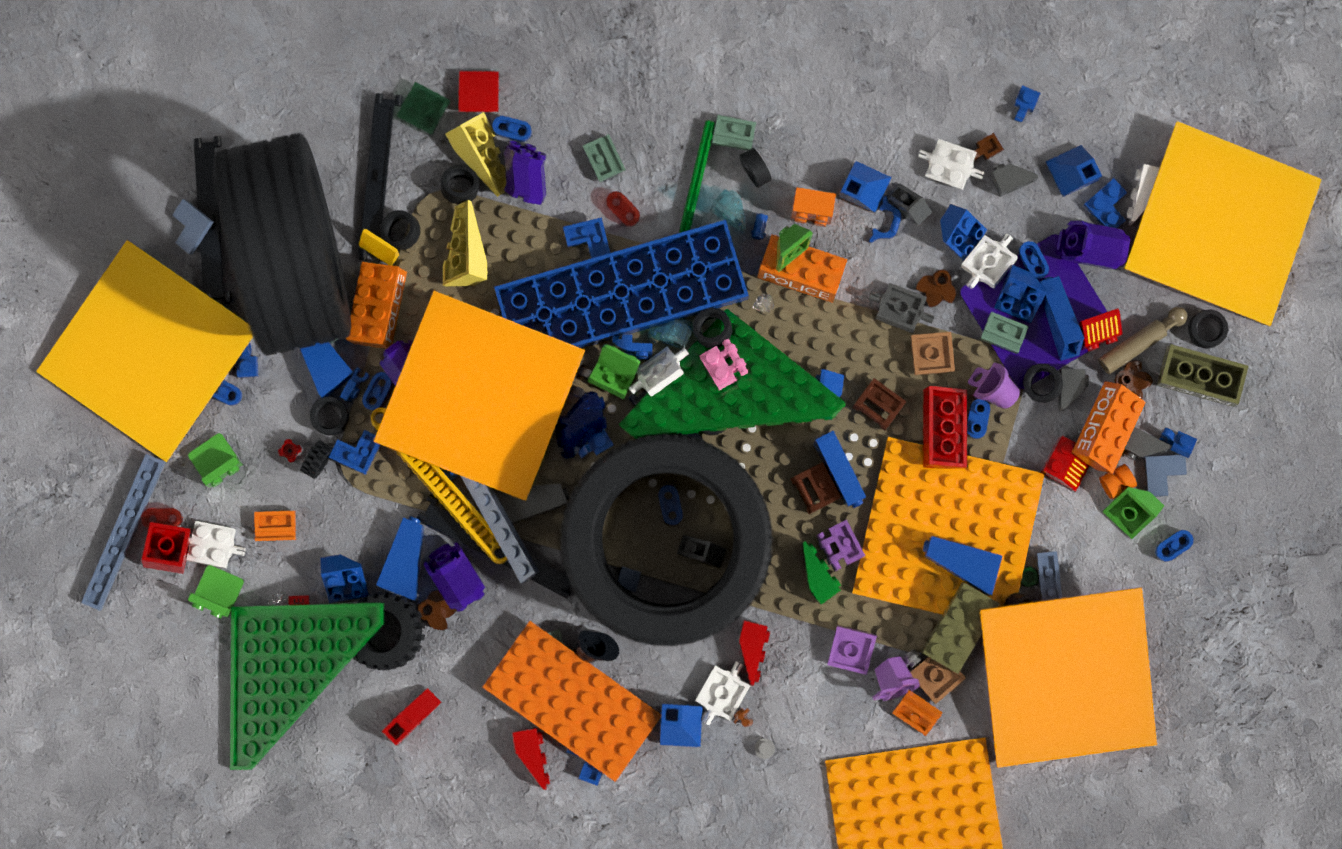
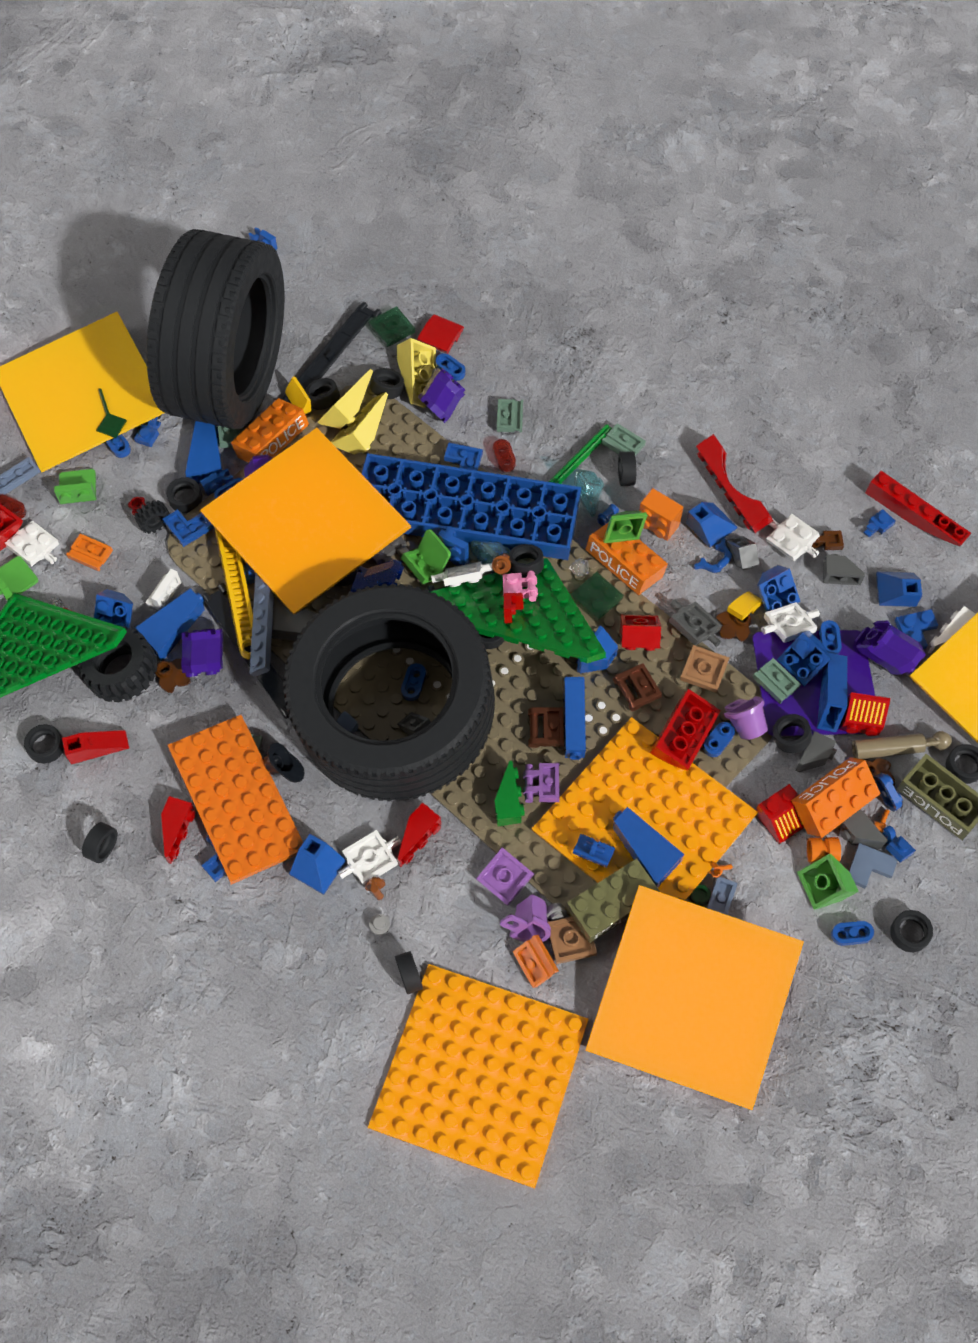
camera: 30 degrees right, 20 degrees down
(207, 376) = (111, 424): none -> dark green piece
(226, 64) = (263, 236): none -> blue plate
(346, 736) = (50, 755): none -> black tyre
(374, 530) = (164, 590): none -> white bracket
(438, 236) = (348, 405): none -> light yellow wedge
(476, 806) = (99, 842): none -> black tyre
(694, 347) = (501, 564): none -> dark orange plate
(728, 392) = (512, 602): none -> red bracket
(794, 325) = (597, 596): none -> clear green plate
(815, 780) = (409, 972): none -> black tyre
(833, 107) = (753, 510): none -> red arch
(854, 344) = (640, 632): none -> red slope
(921, 591) = (593, 850): none -> blue hips
(938, 263) = (744, 605): none -> yellow slope
(1033, 549) = (718, 869): none -> orange hand
(1056, 72) = (915, 509): none -> red slope
(1156, 398) = (888, 793): none -> blue plate
(1157, 430) = (882, 824): none -> orange hand
(1239, 517) = (899, 940): none -> black tyre

